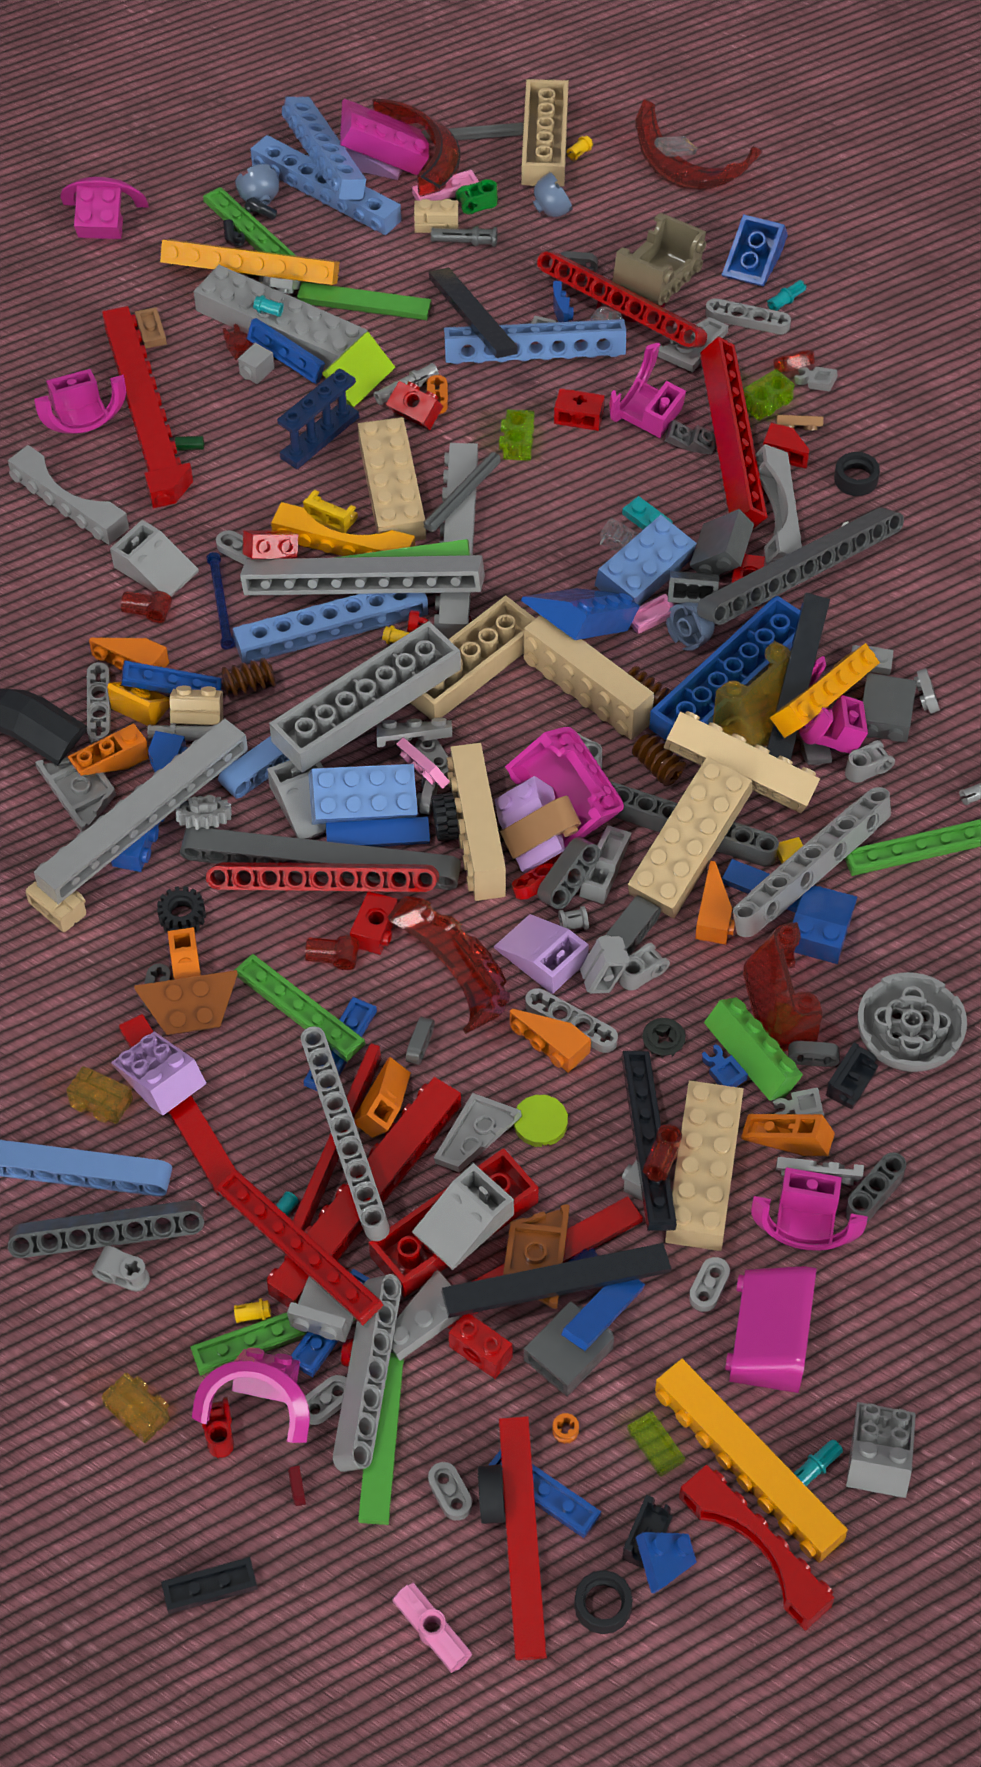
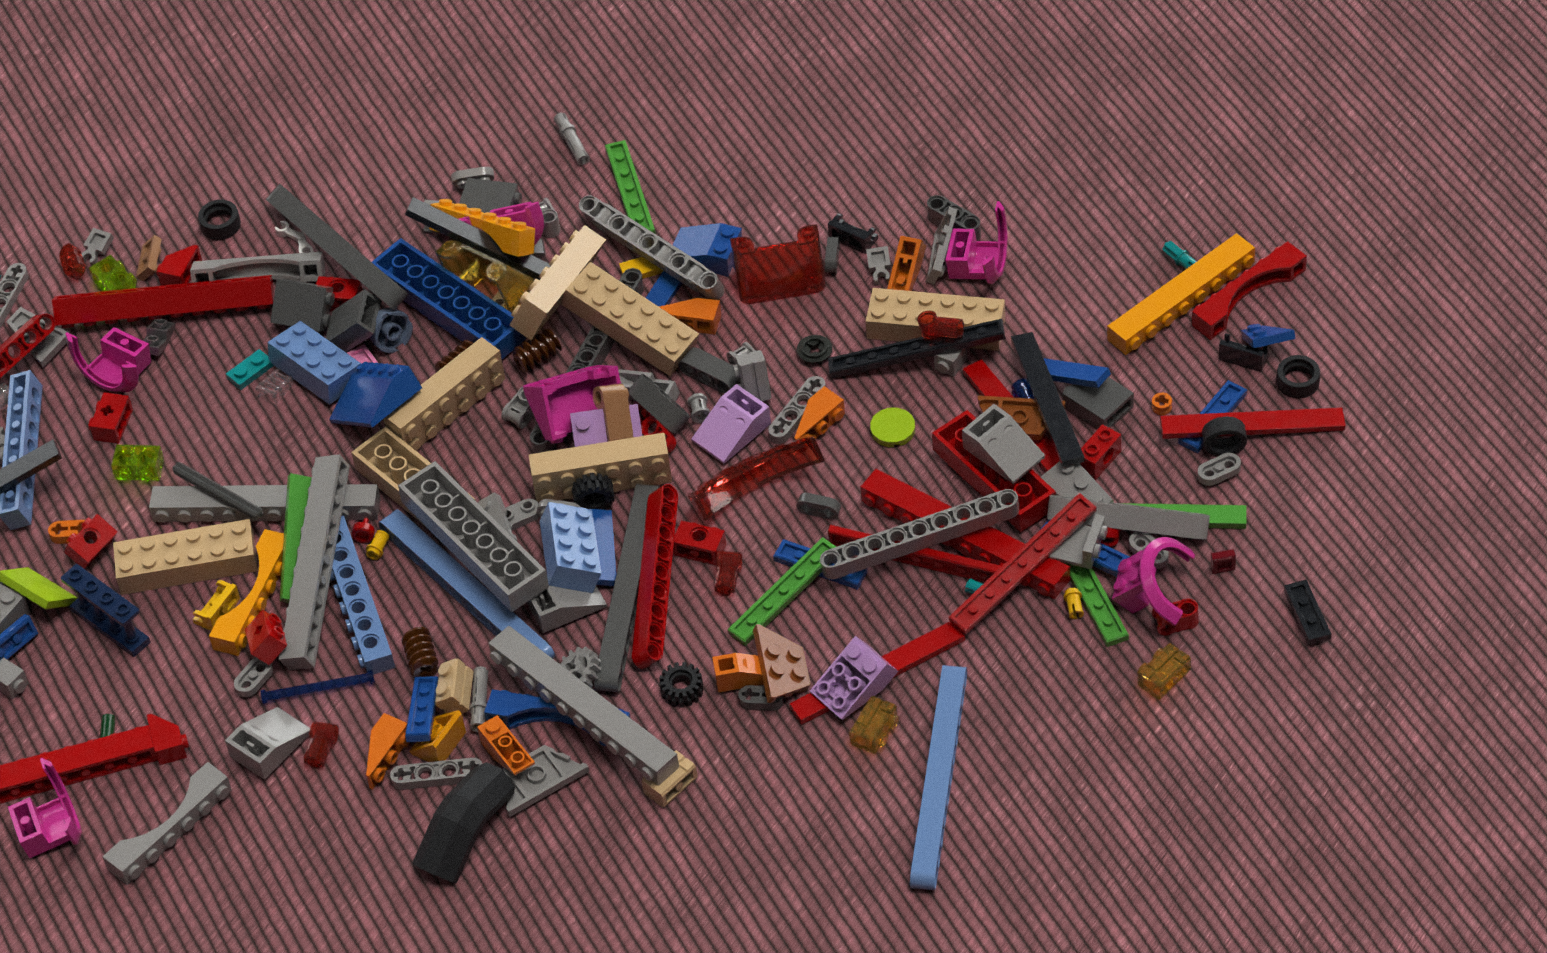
camera: 85 degrees left, 5 degrees down
(95, 1238) = (1005, 705): dark grey beam -> none
(121, 1269) = (1040, 692): light grey piece -> none
(383, 1099) = (876, 520): orange slope -> none
(416, 377) = (50, 549): light grey pin -> none
(420, 1613) = (1328, 473): bright pink piece -> none
(421, 763) = (525, 517): bright pink plate -> none
(474, 1131) = (907, 466): light grey wing -> none
(656, 1443) = (1170, 351): clear neon green tile -> none
(709, 1286) = (1038, 318): light grey plate -> none
(724, 1071) = (847, 309): blue plate -> none
(753, 1048) = (830, 287): bright green brick -> none
(772, 1327) = (1075, 270): dark pink windscreen -> none
(881, 1450) = (1168, 219): light grey slope -> none
(915, 998) = (795, 193): light grey brick -> none

